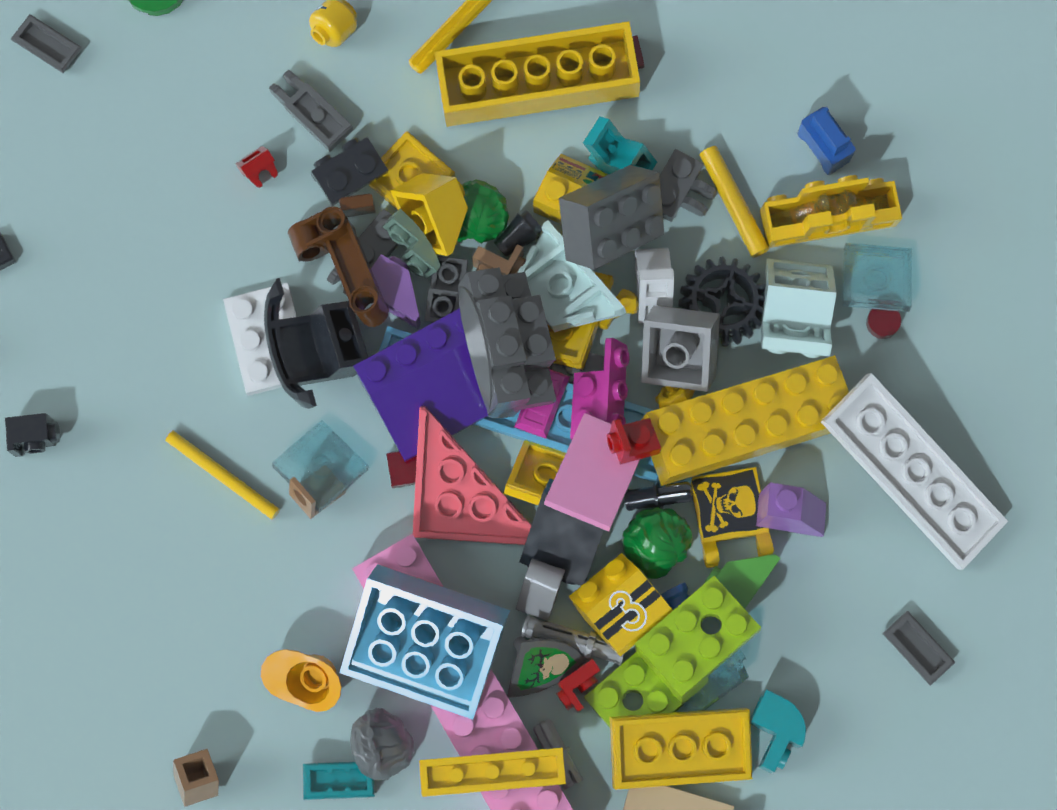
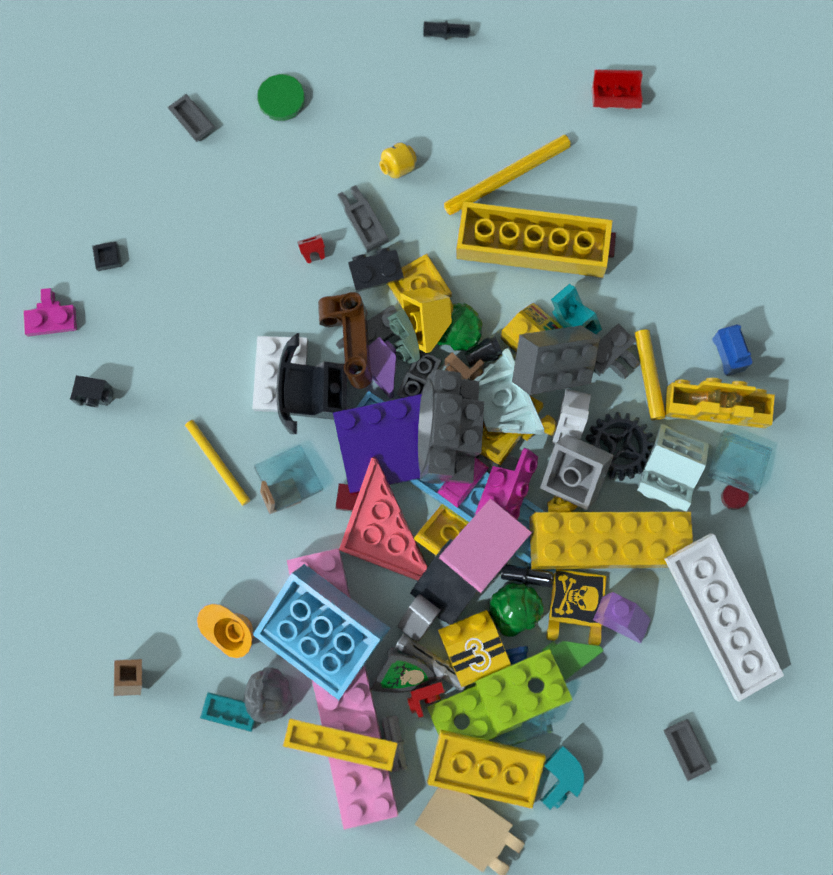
camera: 20 degrees right, 0 degrees up
(357, 205) = (374, 296): reddish brown tile -> none
(633, 440) = (519, 530): red bracket -> none

